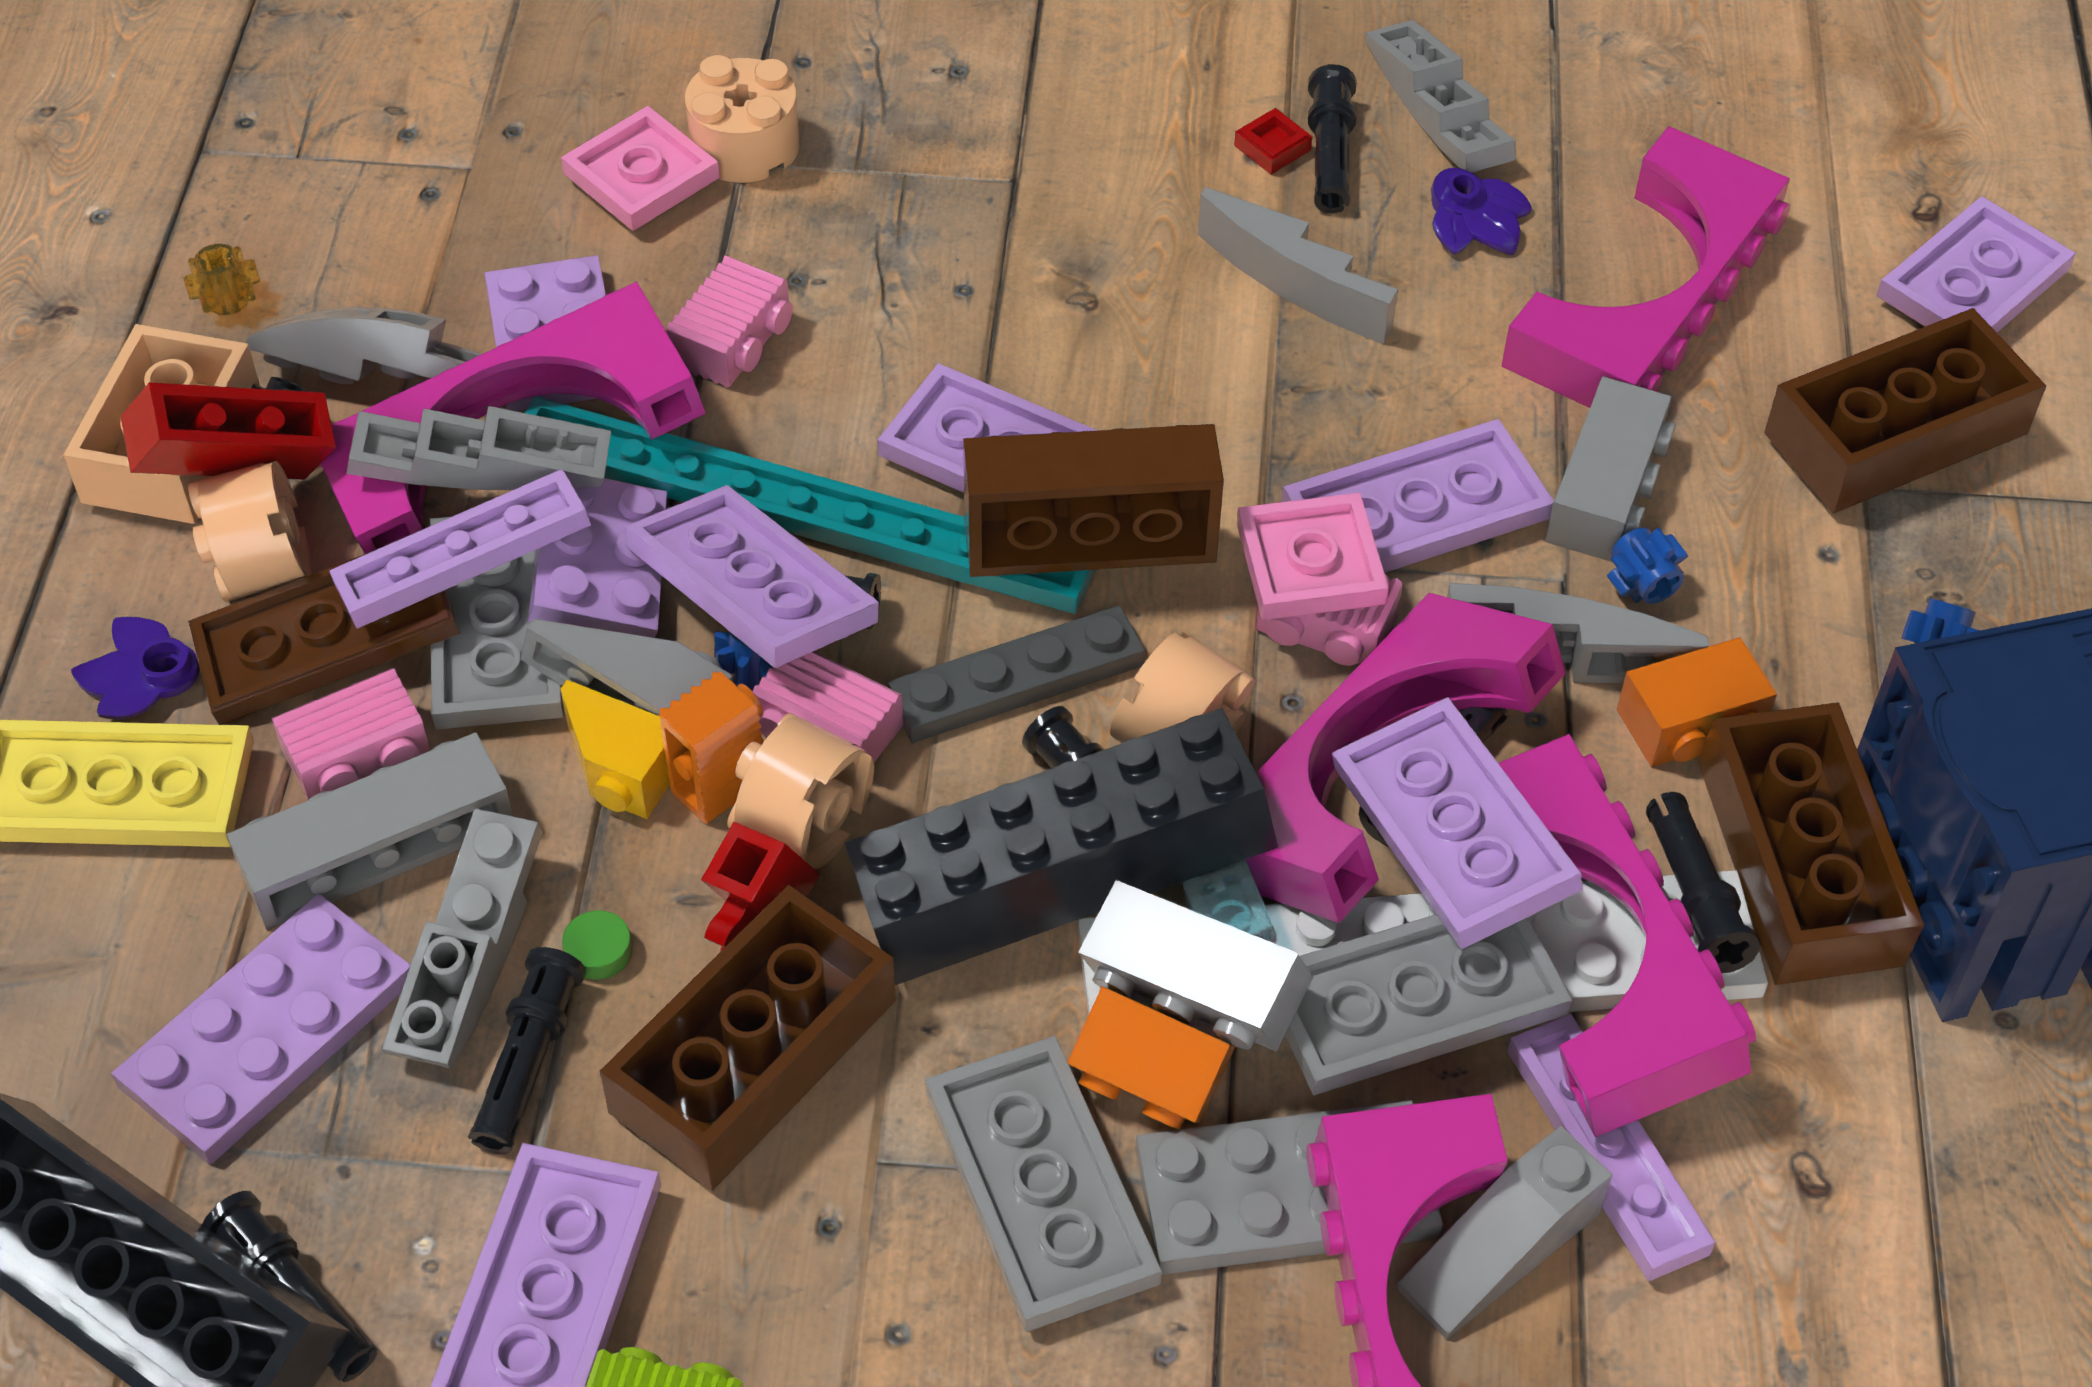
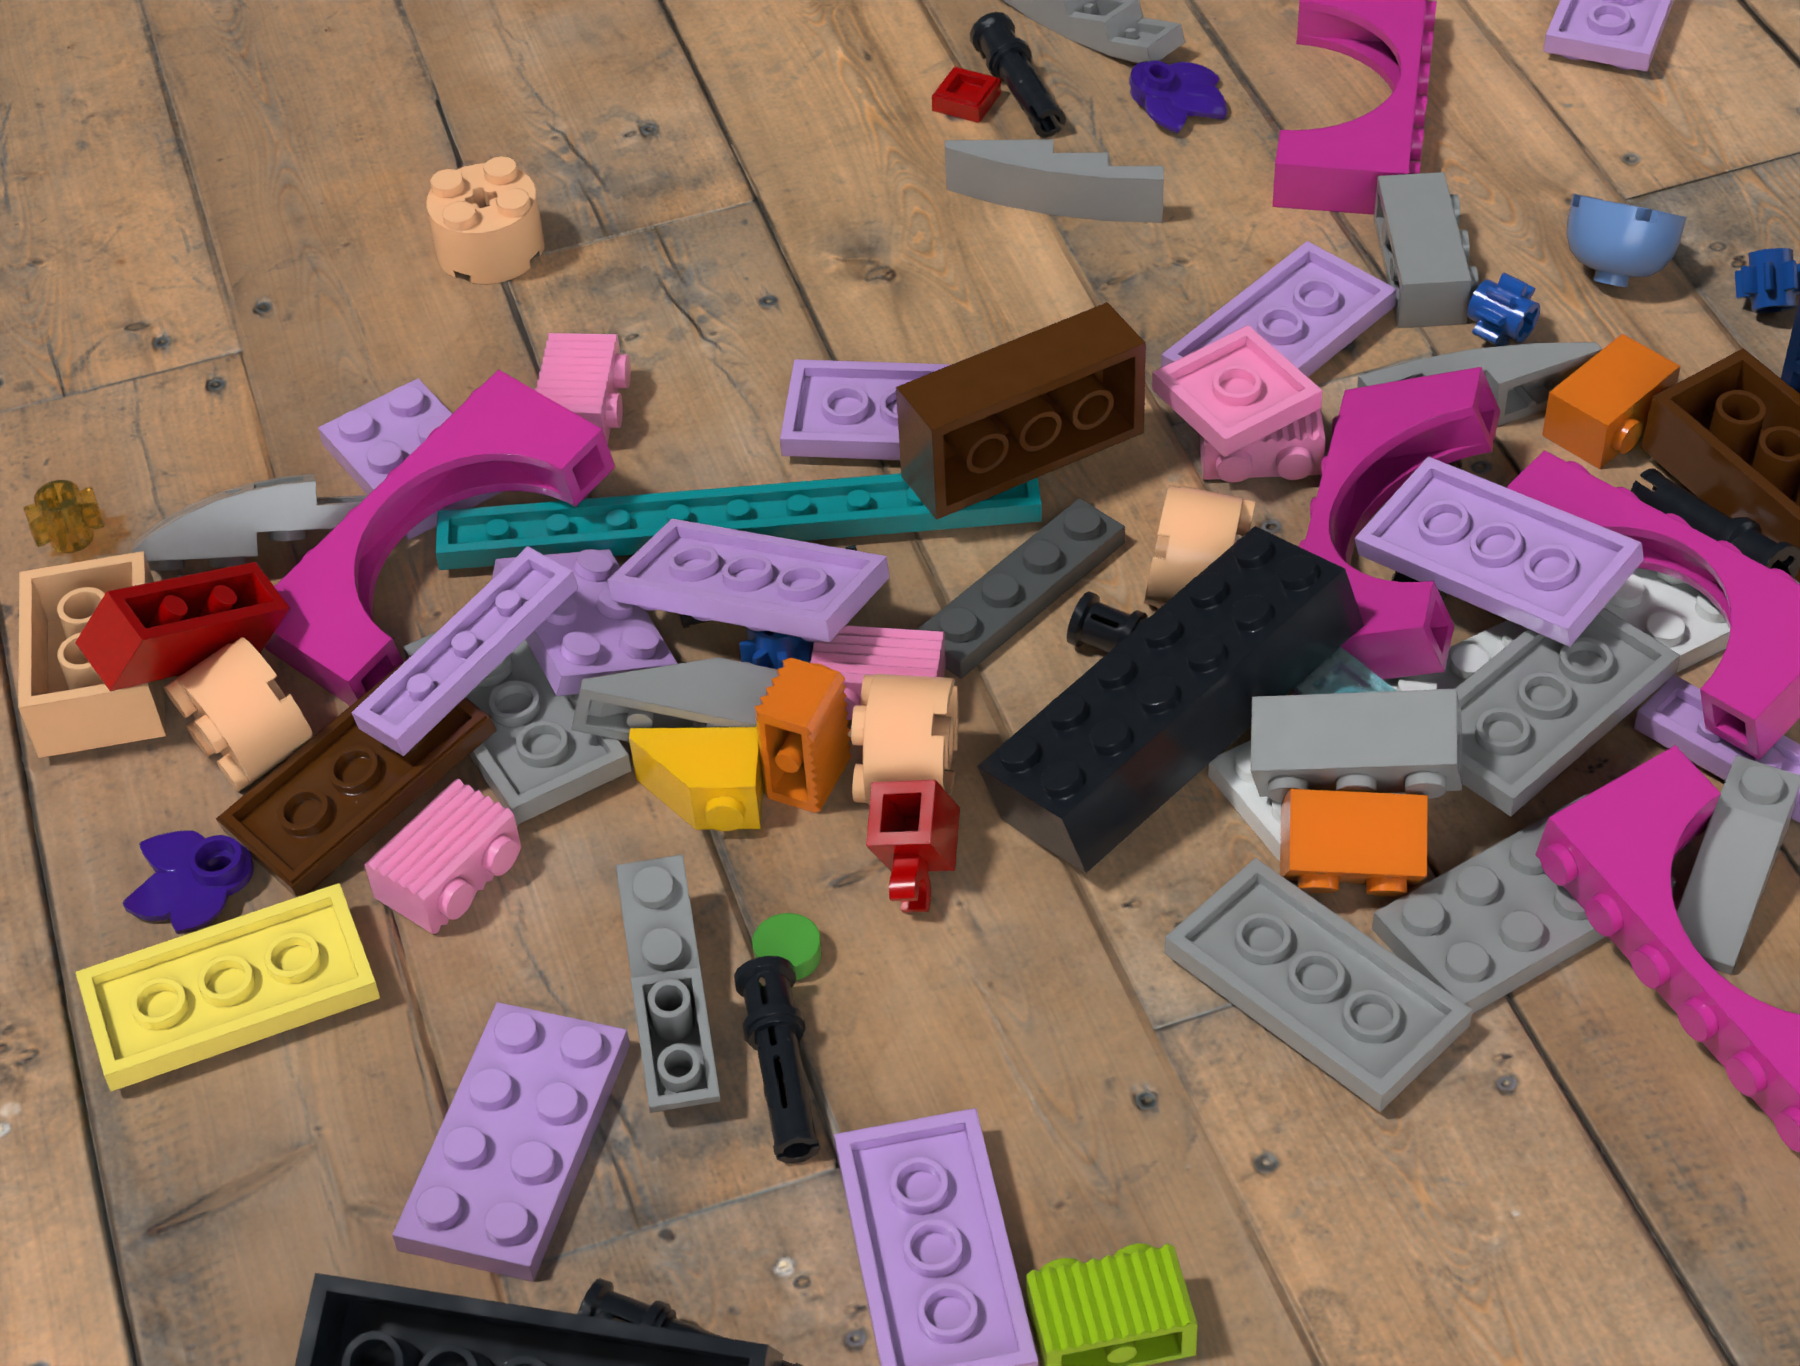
camera: 20 degrees left, 5 degrees down
(367, 829) = (511, 929): light grey brick -> none
(477, 453) = (412, 571): light grey slope -> none
(640, 168) = (411, 294): bright pink plate -> none
(749, 1036) = (988, 962): reddish brown brick -> none
(1811, 531) = (1621, 238): none -> medium blue cylinder
(1903, 409) = (1632, 119): reddish brown brick -> none

